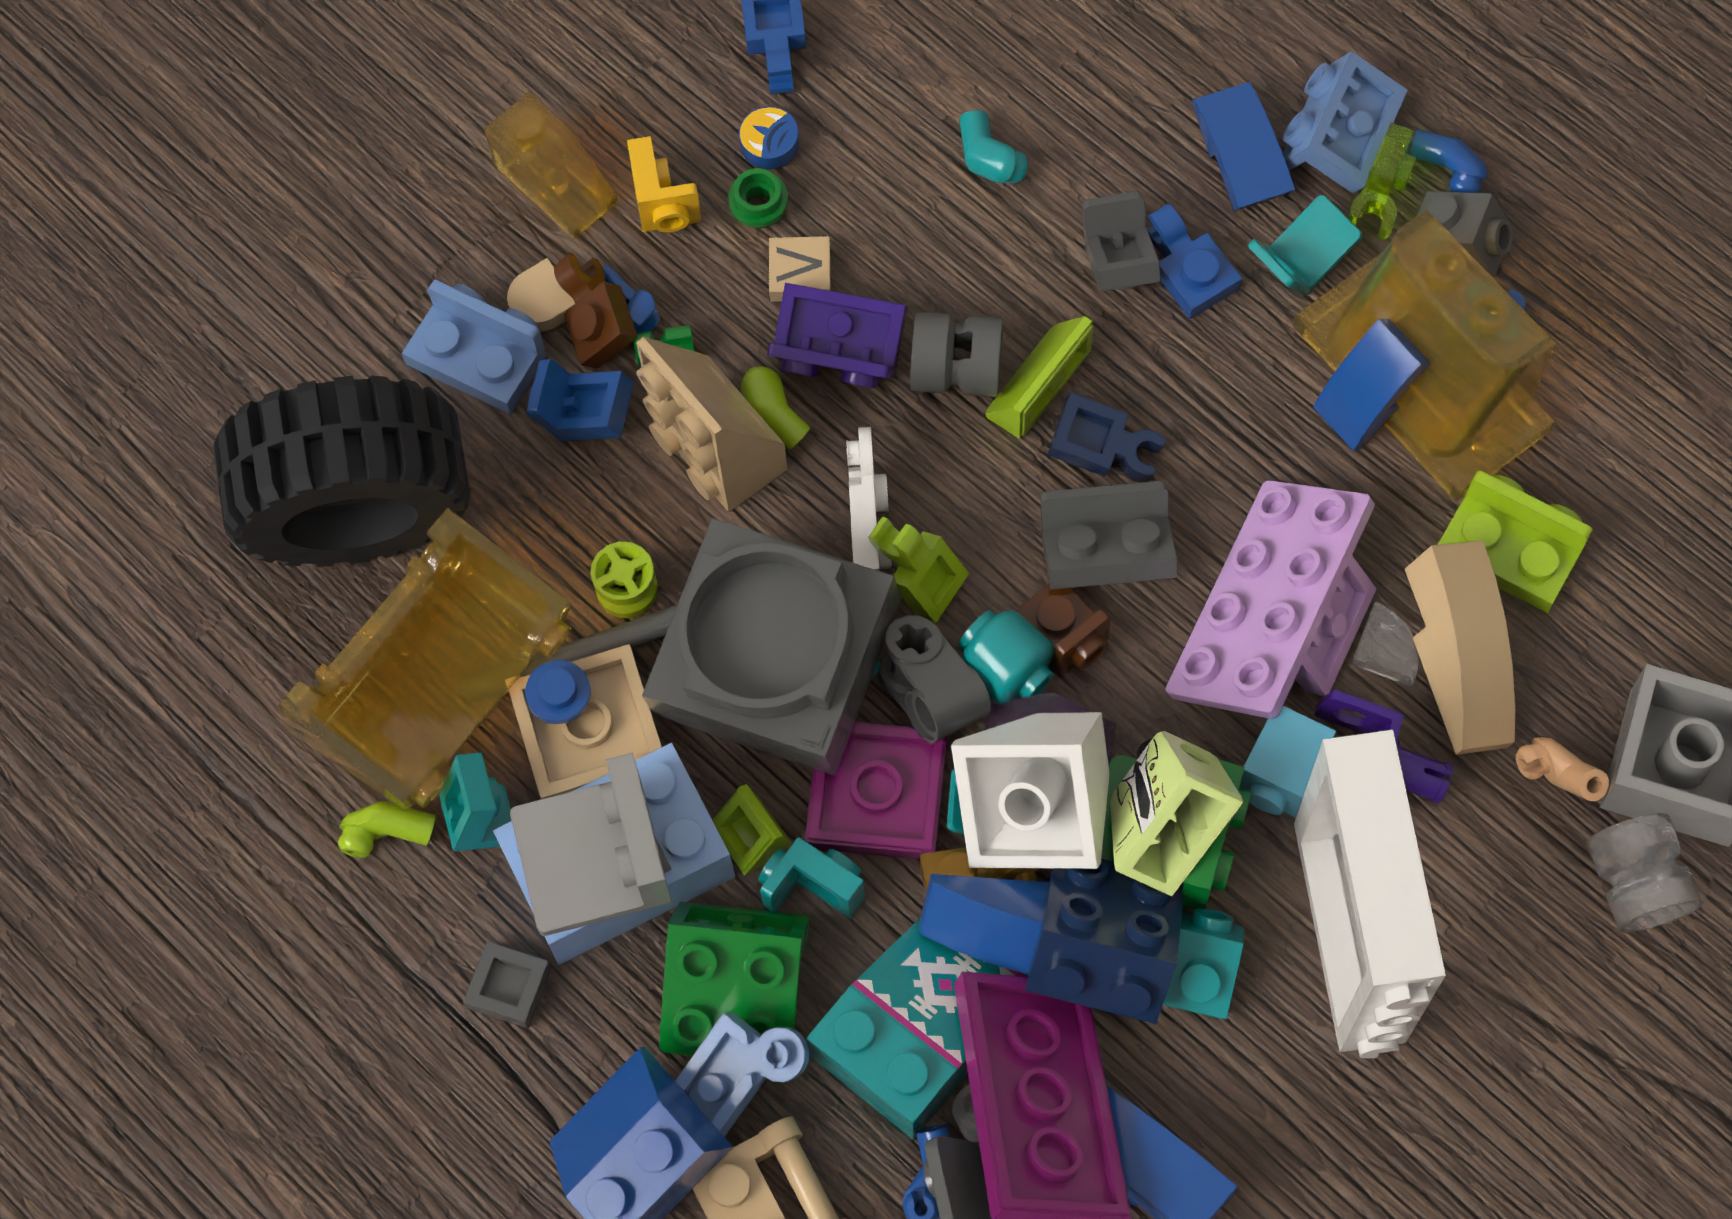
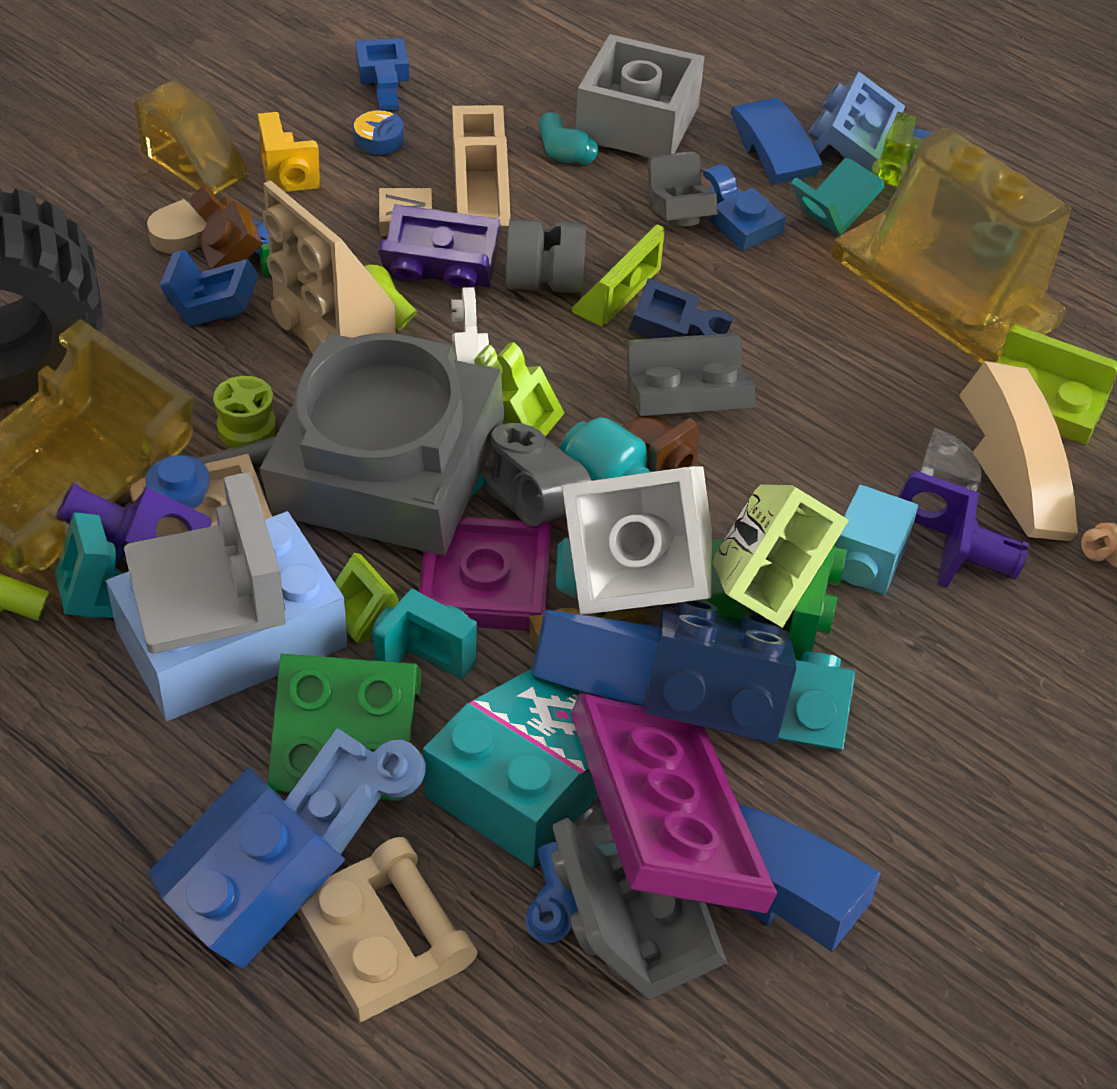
camera: 10 degrees left, 20 degrees down
(476, 346) = (127, 251): medium blue bracket -> none
(507, 985) = (112, 734): dark grey tile -> none
(515, 749) = (134, 521): none -> dark purple bracket
(753, 184) = (369, 165): green plate -> none
(887, 210) = (481, 162): none -> tan slope
(1079, 94) = (639, 96): none -> light grey brick
(1280, 603) = (854, 422): lavender bracket -> none
(1367, 893) = (977, 494): white window -> none
(1369, 382) = (905, 267): blue slope -> none

